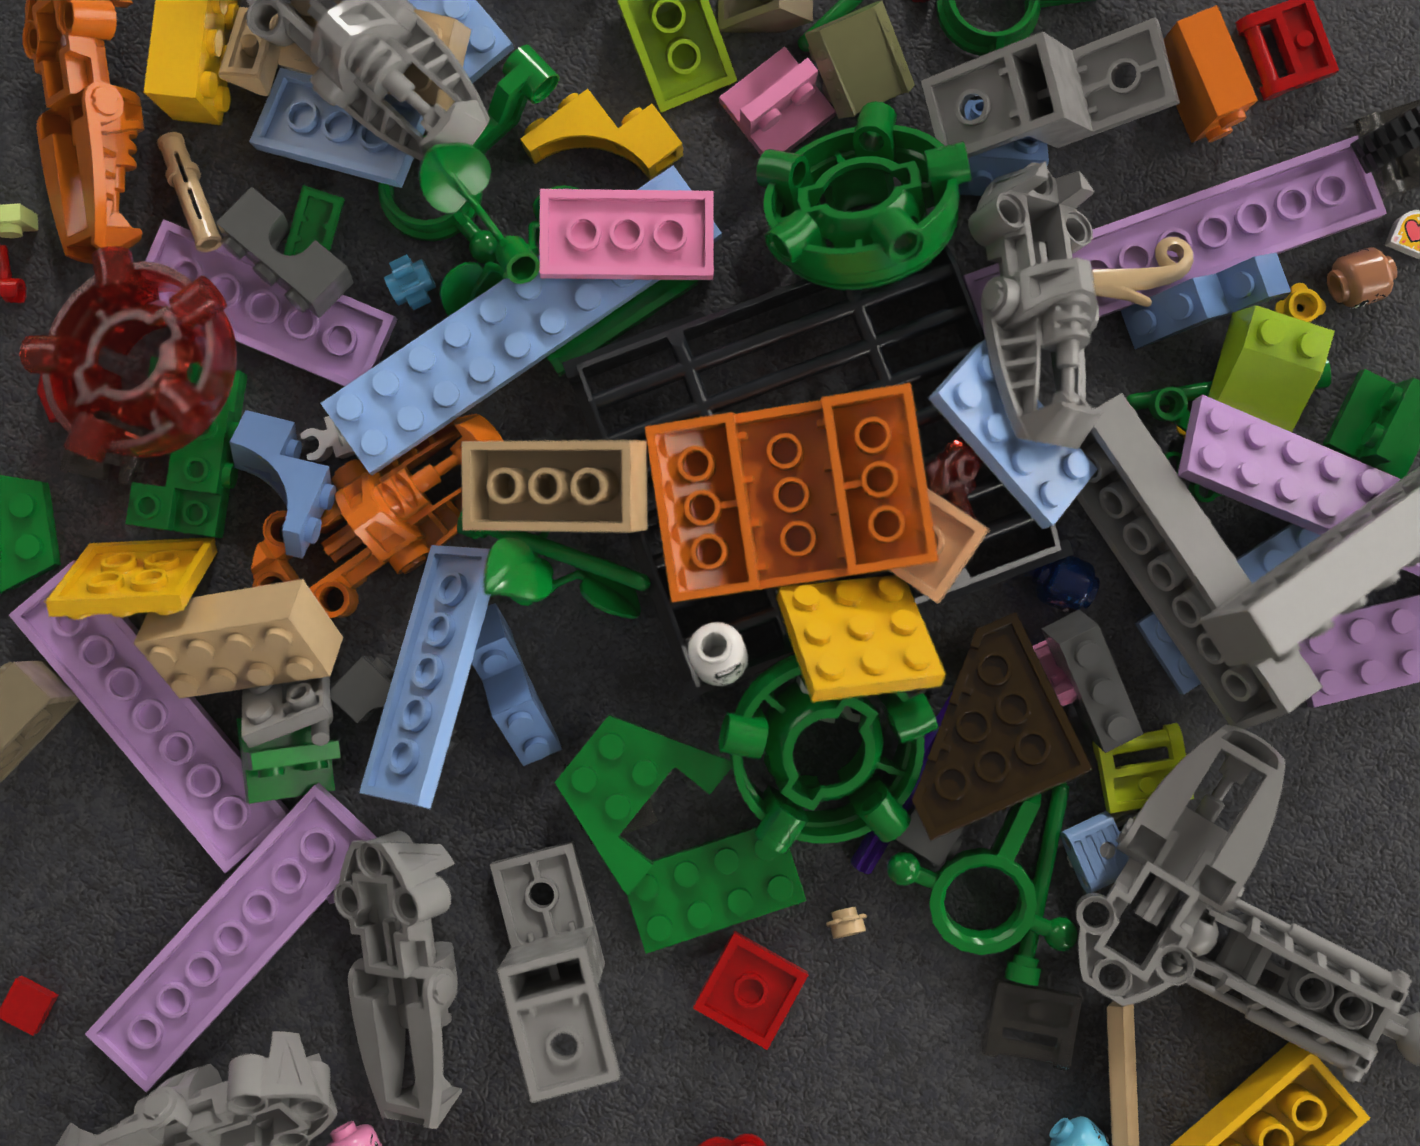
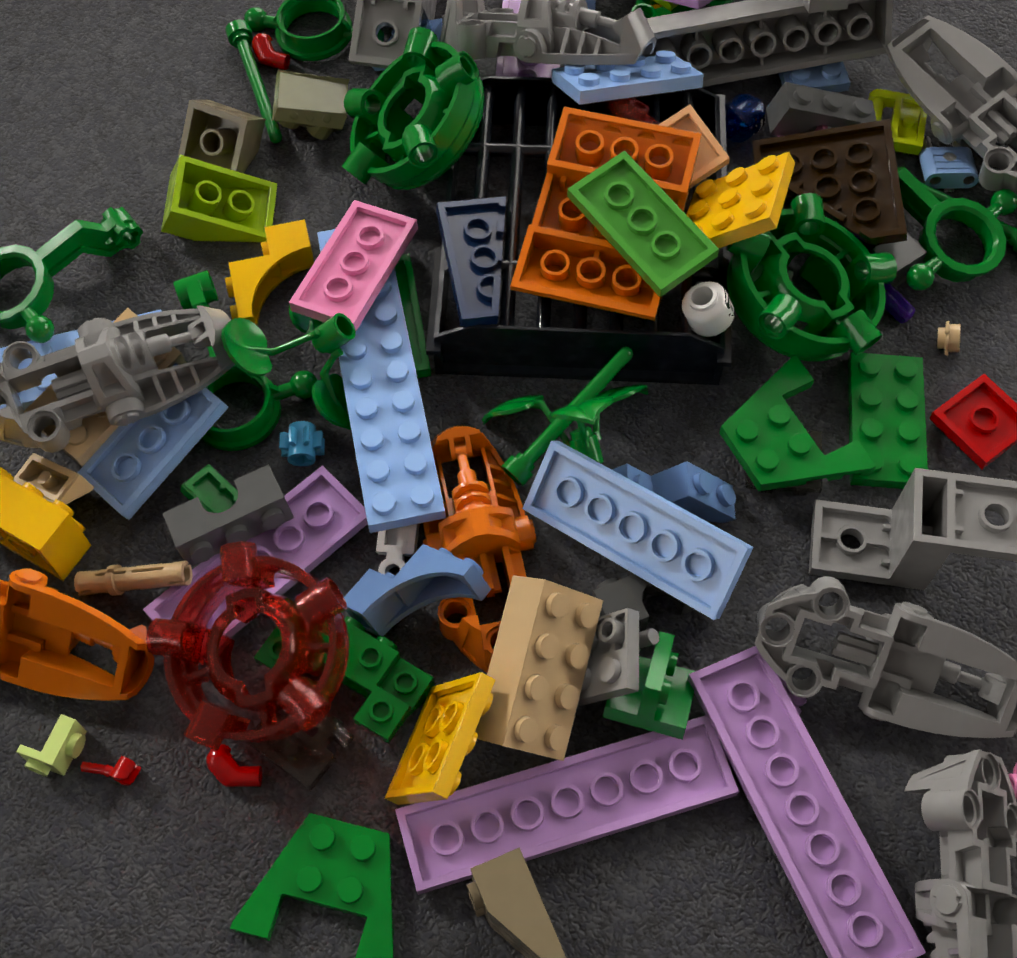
camera: 70 degrees left, 25 degrees down
(555, 486) = (524, 364): tan brick -> none
(692, 360) = (473, 250): none -> dark blue wing
(775, 542) = (642, 223): none -> bright green plate
(778, 103) = (309, 165): bright pink bracket -> none

